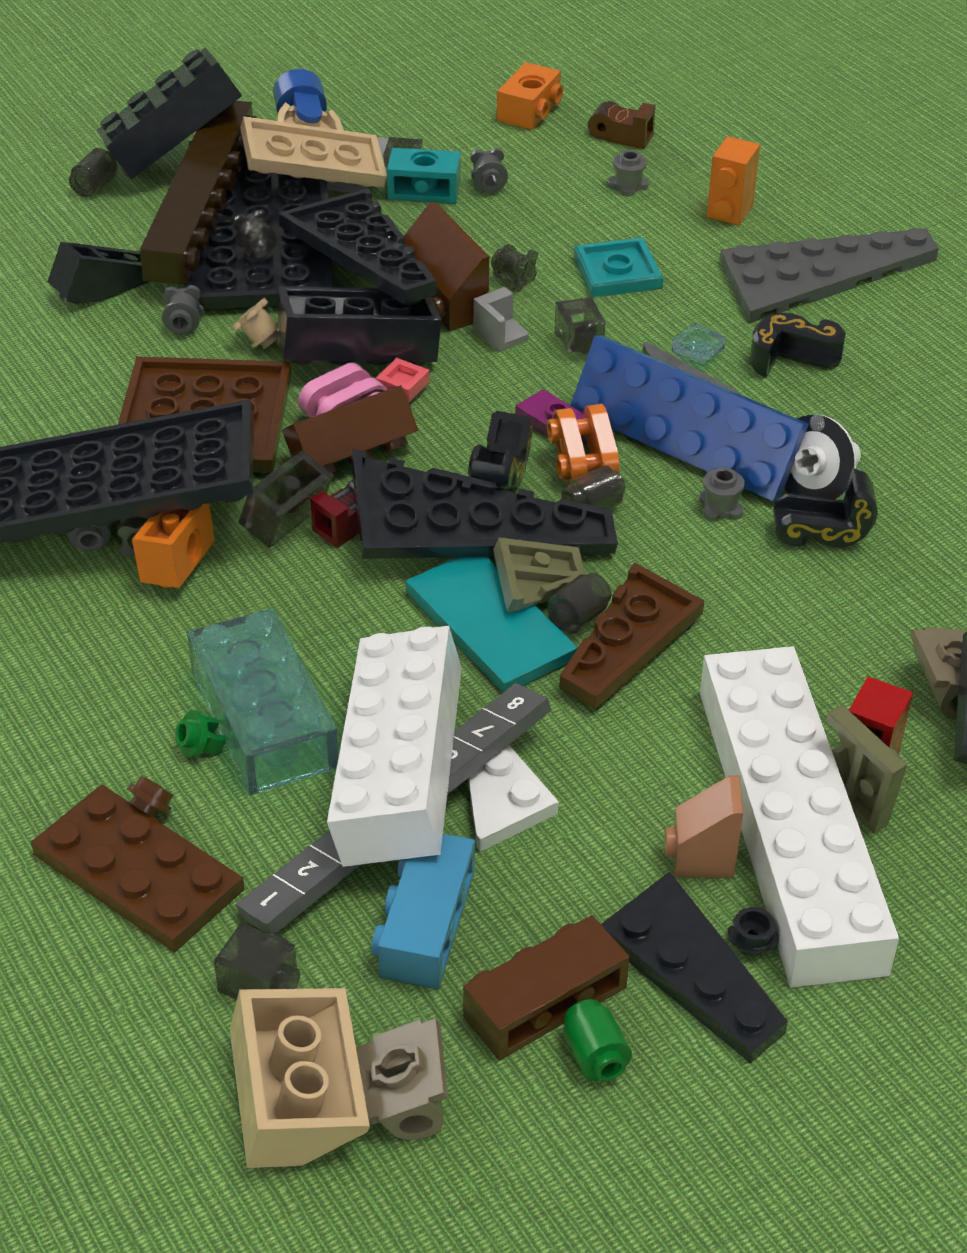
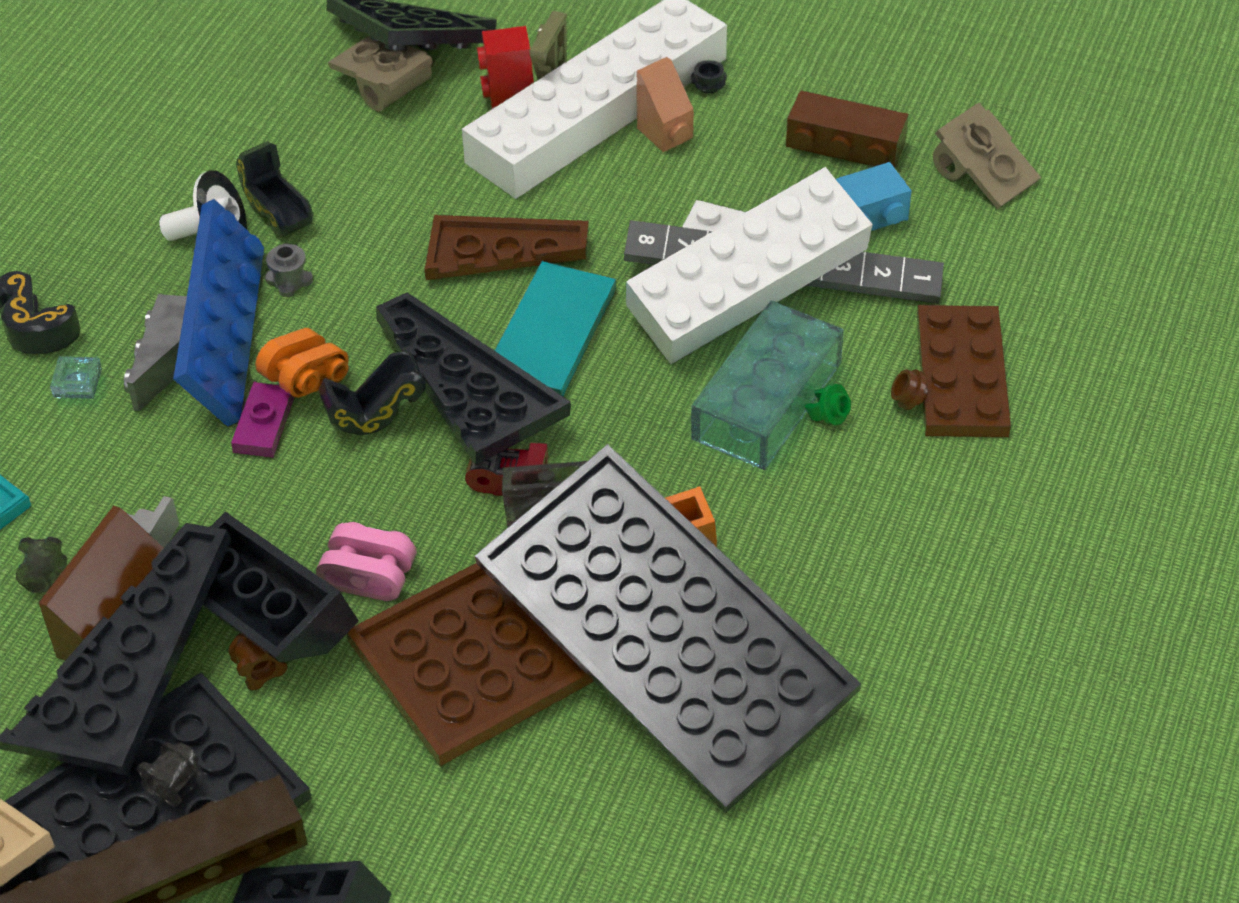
camera: 125 degrees left, 5 degrees up
(183, 309) = (329, 779): dark grey brick -> none
(256, 962) = (974, 252): clear smoke brick -> none
(258, 325) = (305, 707): tan brick -> none
(296, 1074) = (1028, 182): tan slope -> none
(359, 425) = (418, 514): reddish brown brick -> none
(410, 376) = (300, 541): coral plate -> none
(534, 570) = (490, 314): olive wing -> none
(578, 335) = (115, 460): clear smoke brick -> none
(579, 602) = (496, 279): clear smoke brick -> none
(596, 488) = (355, 335): clear smoke brick -> none
(596, 1041) = (862, 88): green brick -> none
(695, 967) = (755, 97): black wing -> none

